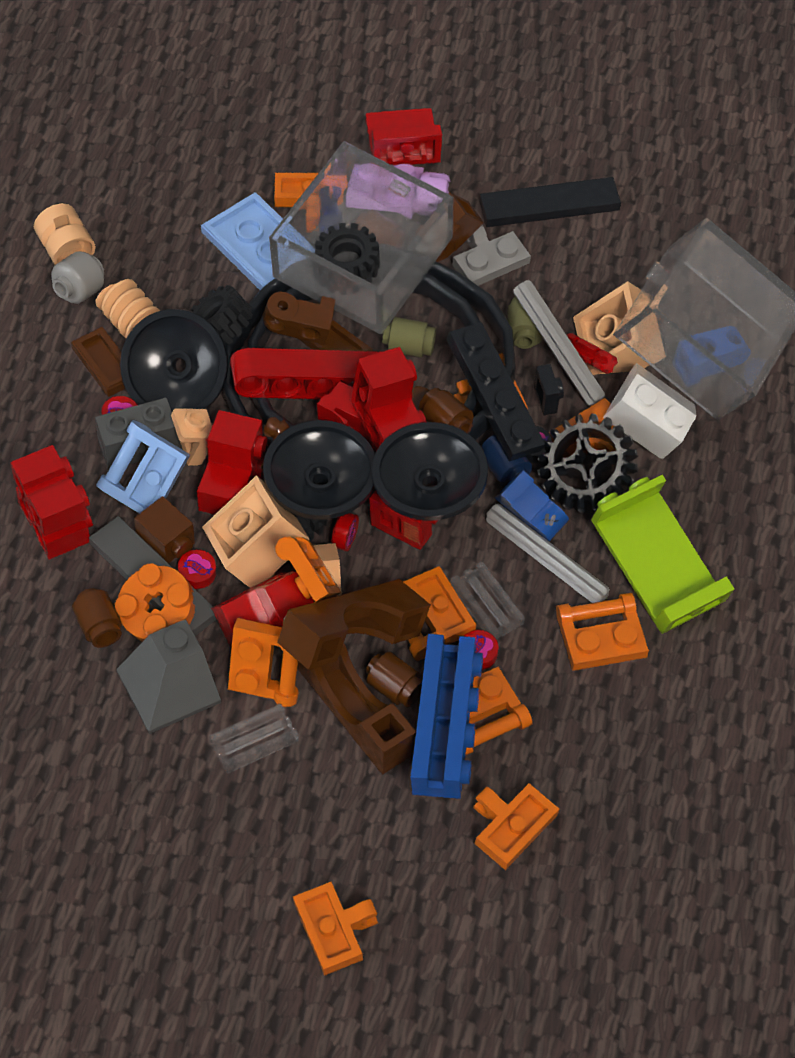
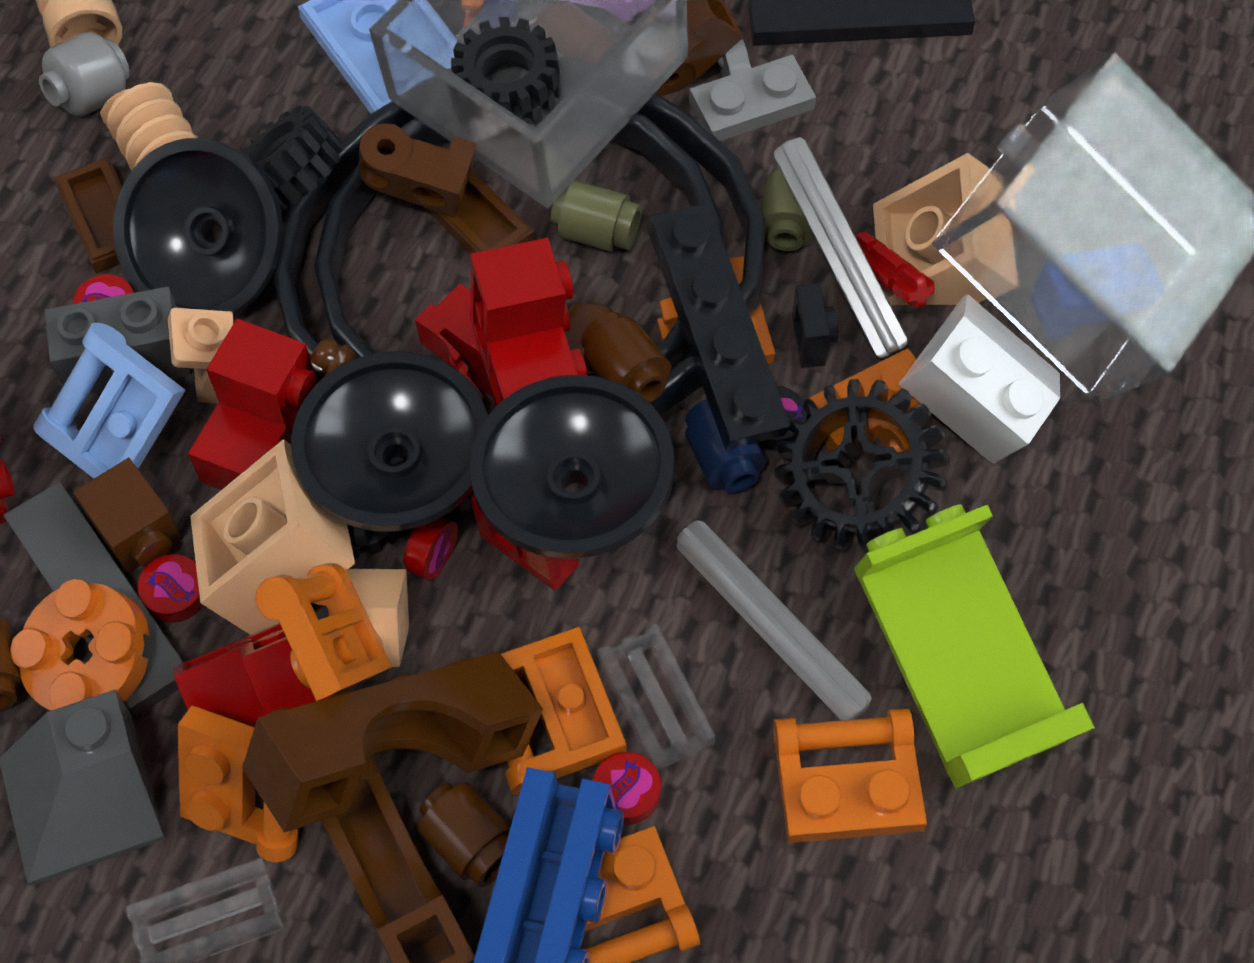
camera: 10 degrees right, 5 degrees up
(292, 371) = (390, 260): red beam -> none
(532, 506) = (756, 533): blue leg -> none

